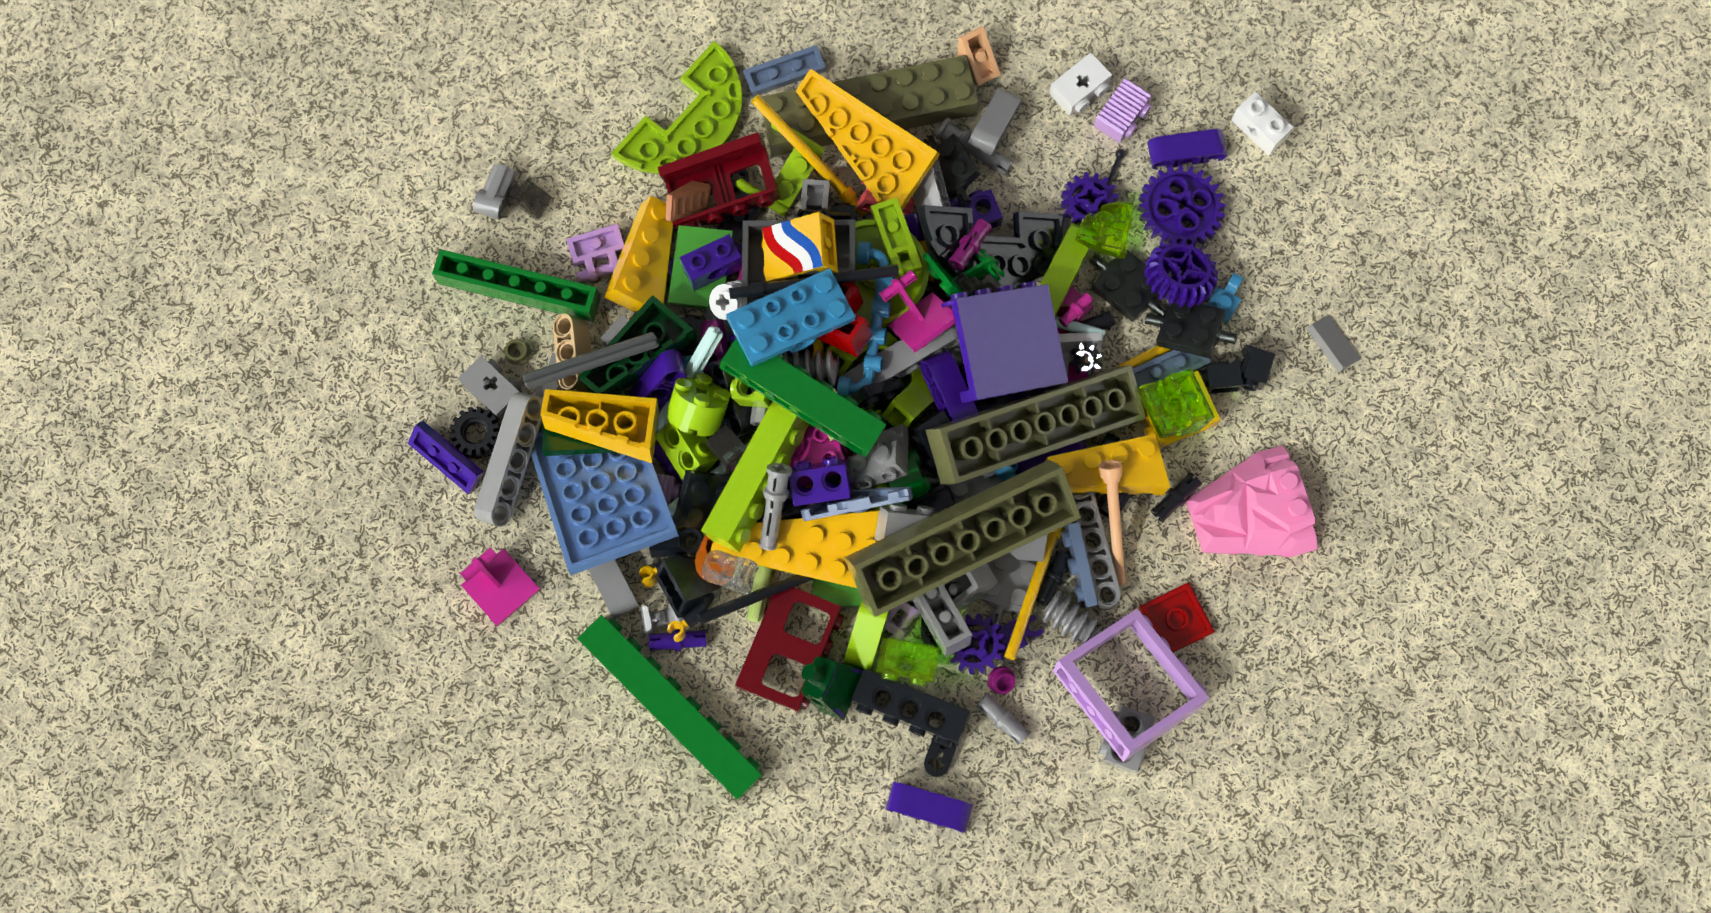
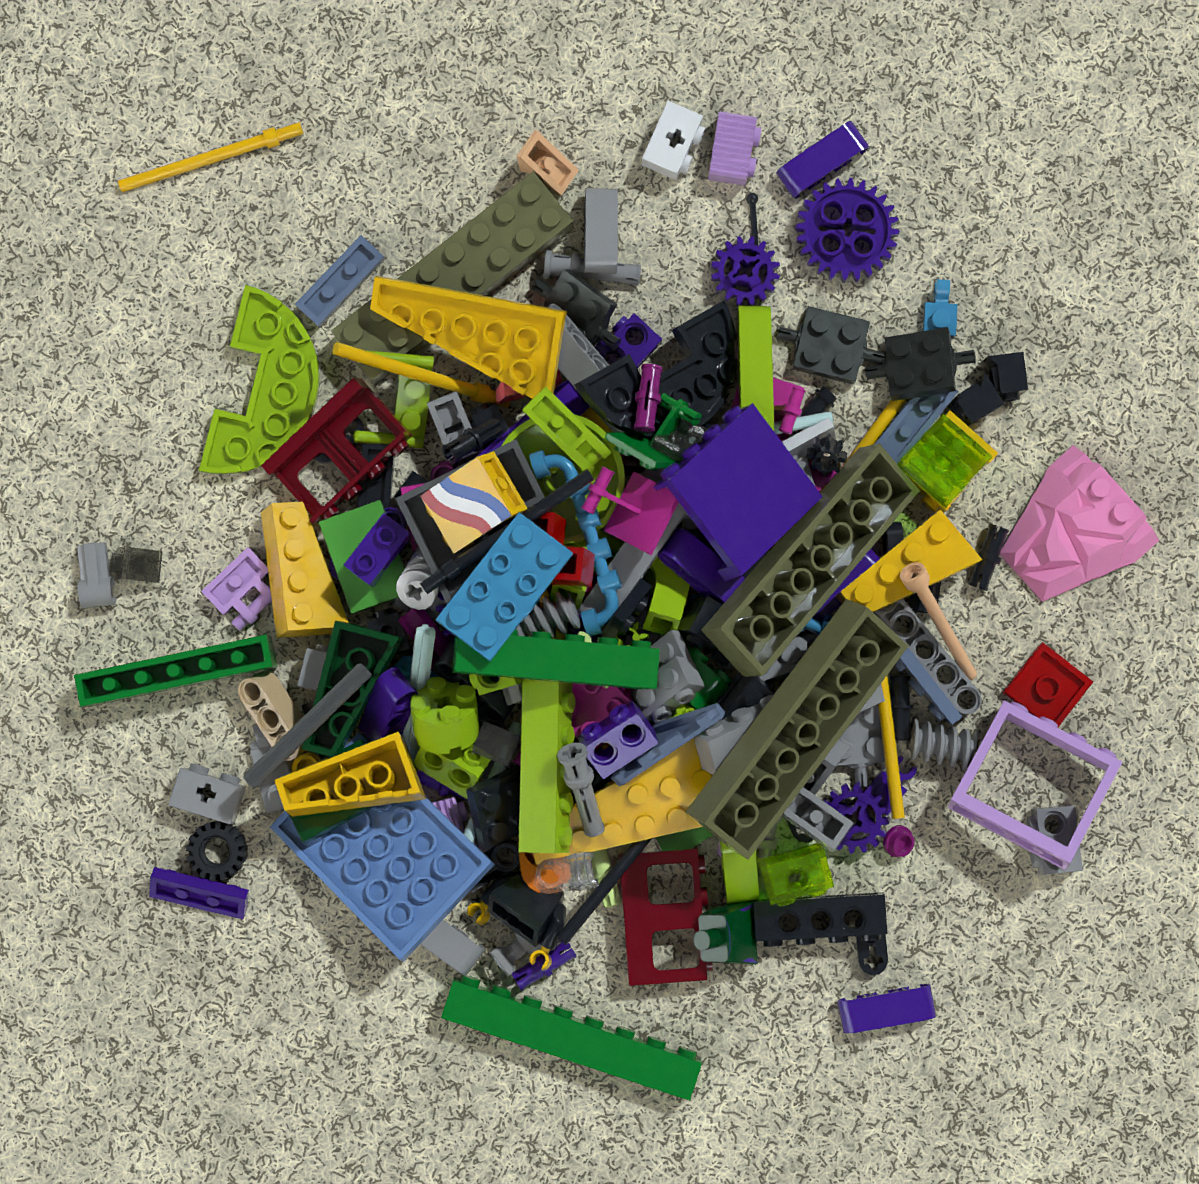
camera: 25 degrees left, 10 degrees up
(497, 584) = (328, 1000): dark pink plate -> none
(509, 459) = (269, 863): light grey beam -> none
(512, 346) = (209, 748): olive plate -> none
(687, 200) = (313, 487): nougat slope -> none
(1002, 719) = (918, 880): light grey pin -> none
(1107, 229) = (781, 297): clear neon green brick -> none
(1165, 276) = (868, 320): dark purple gear -> none
(1262, 123) = (891, 91): white brick -> none
(1333, 343) = (1077, 305): light grey slope -> none

